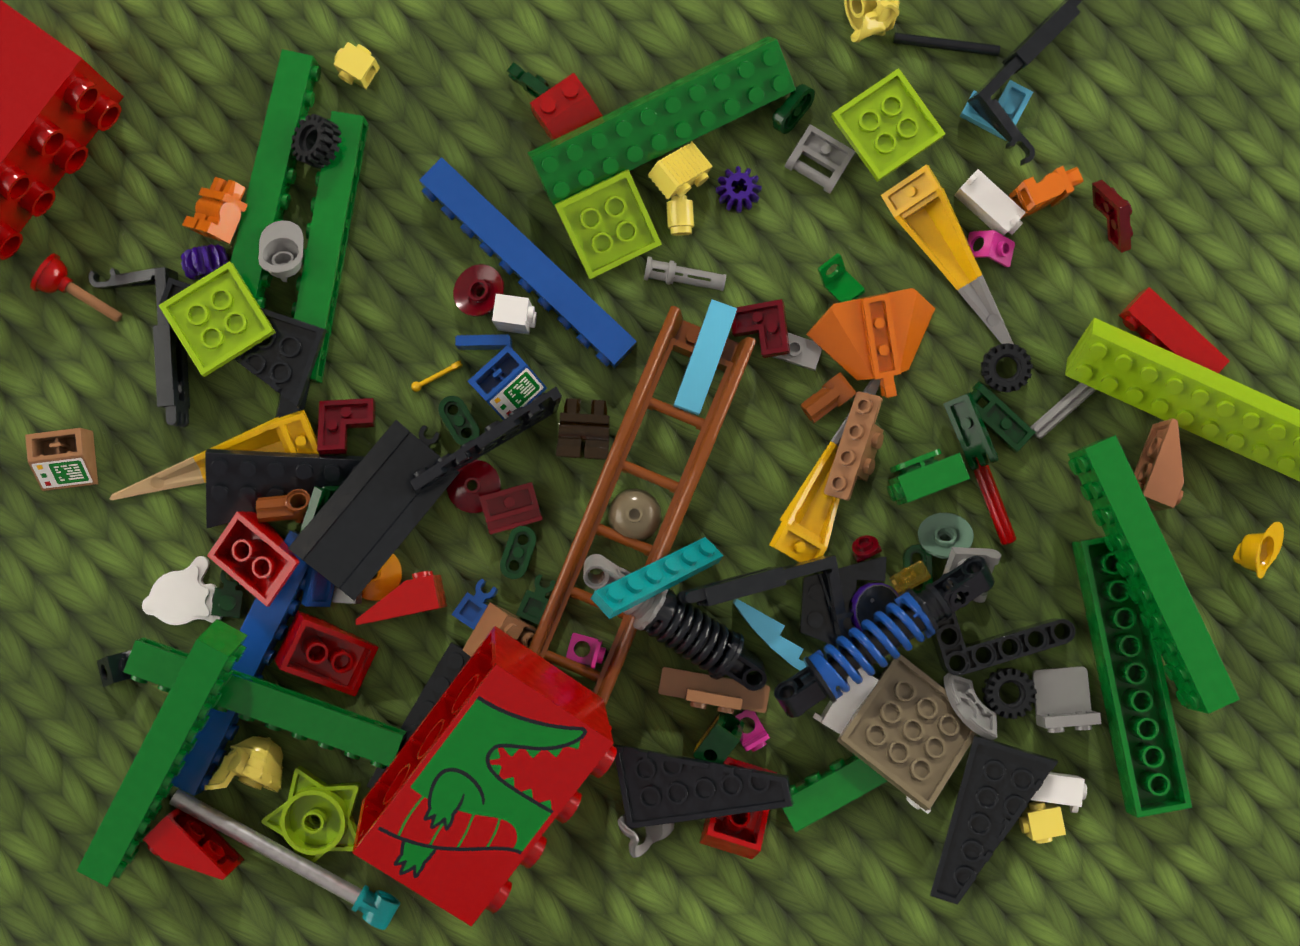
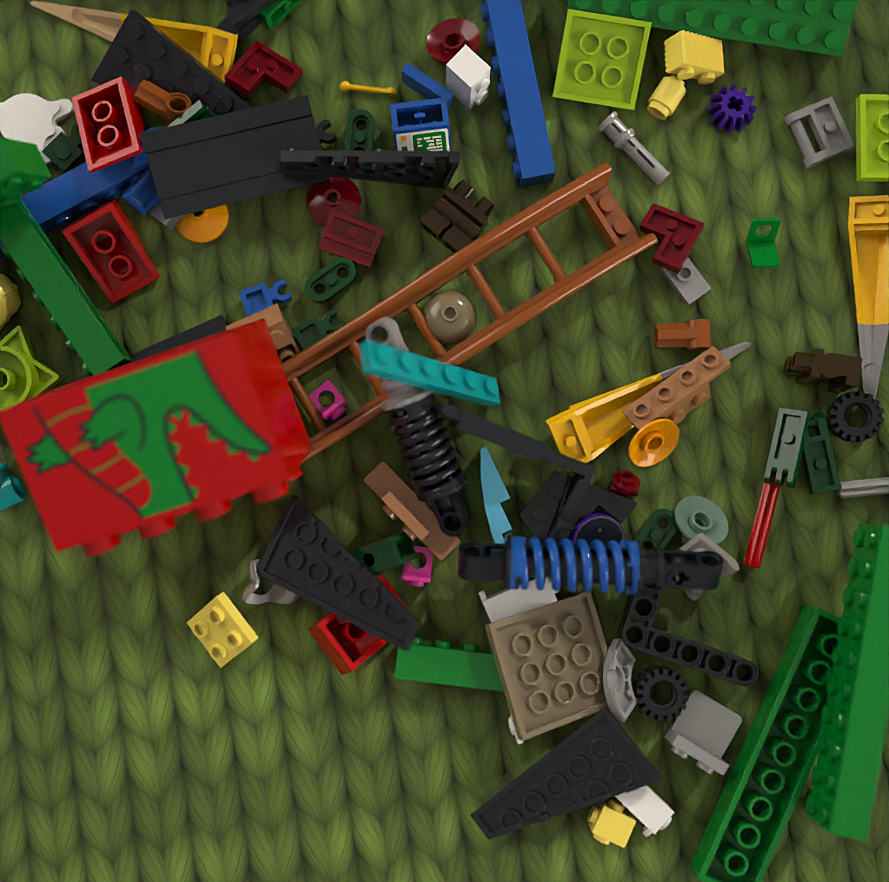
camera: 35 degrees right, 0 degrees up
(413, 596) = (209, 249): red slope -> none
(633, 892) = (222, 629): none -> light yellow plate
(705, 357) = (604, 224): medium azure slope -> none
(793, 109) = (826, 74): dark green plate -> none
(865, 501) = (653, 442): none -> light orange dish
(875, 335) = (762, 308): orange panel -> none
(910, 577) = (646, 533): clear yellow bracket -> none
(925, 476) = (721, 457): green brick -> none
(948, 352) = (815, 367): none -> dark brown hips

